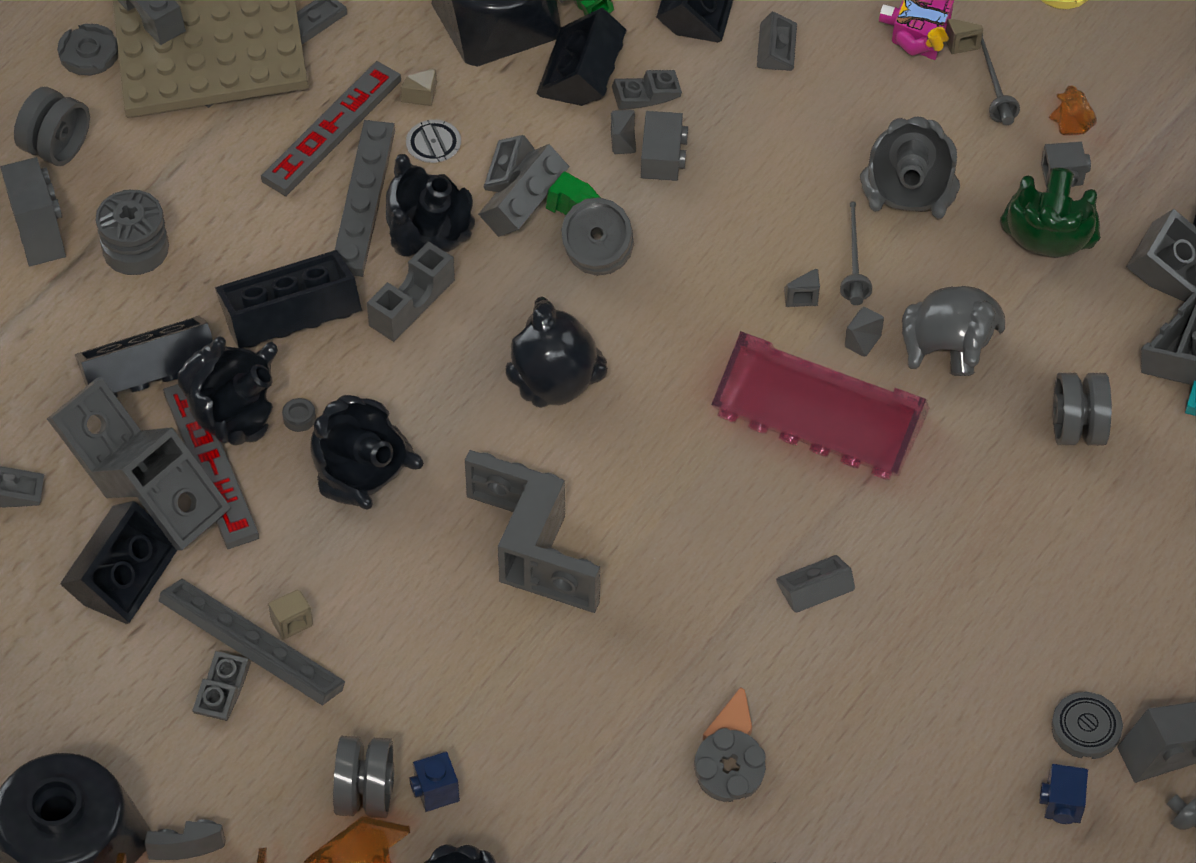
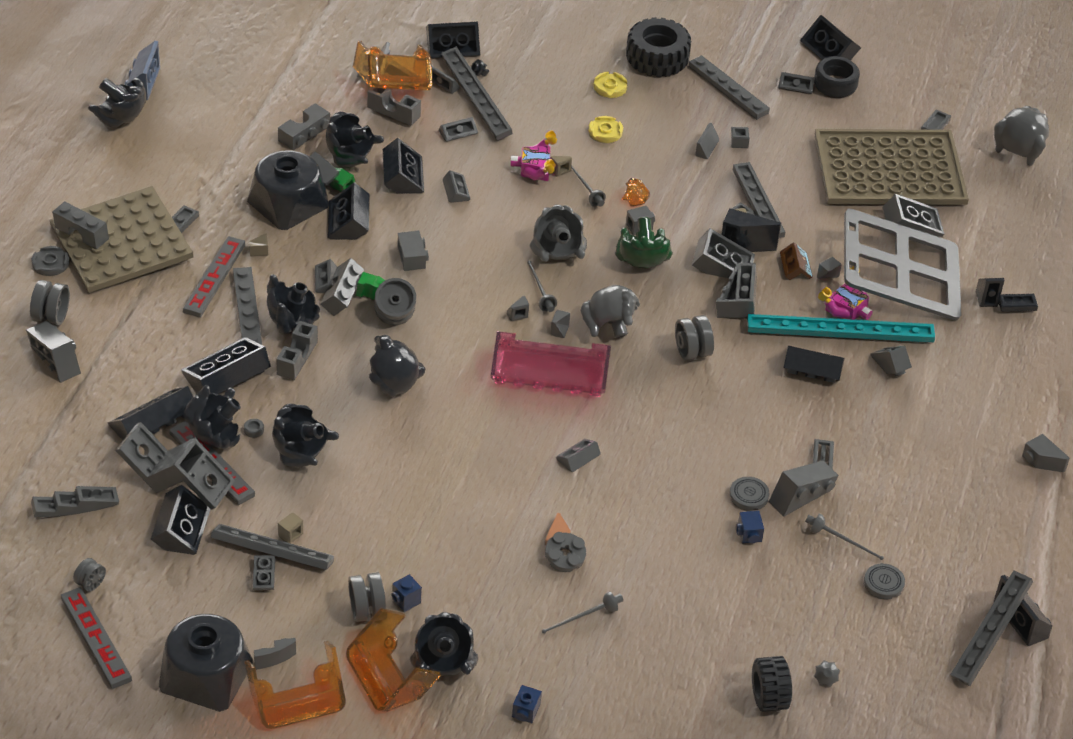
camera: 20 degrees left, 10 degrees down
(132, 232) = (120, 350): dark grey wheel -> none
(433, 141) = (281, 270): light grey sticker -> none
(526, 545) = (411, 442): dark grey bracket -> none
(623, 131) = (385, 248): dark grey slope -> none
(653, 89) = (394, 223): dark grey slope -> none

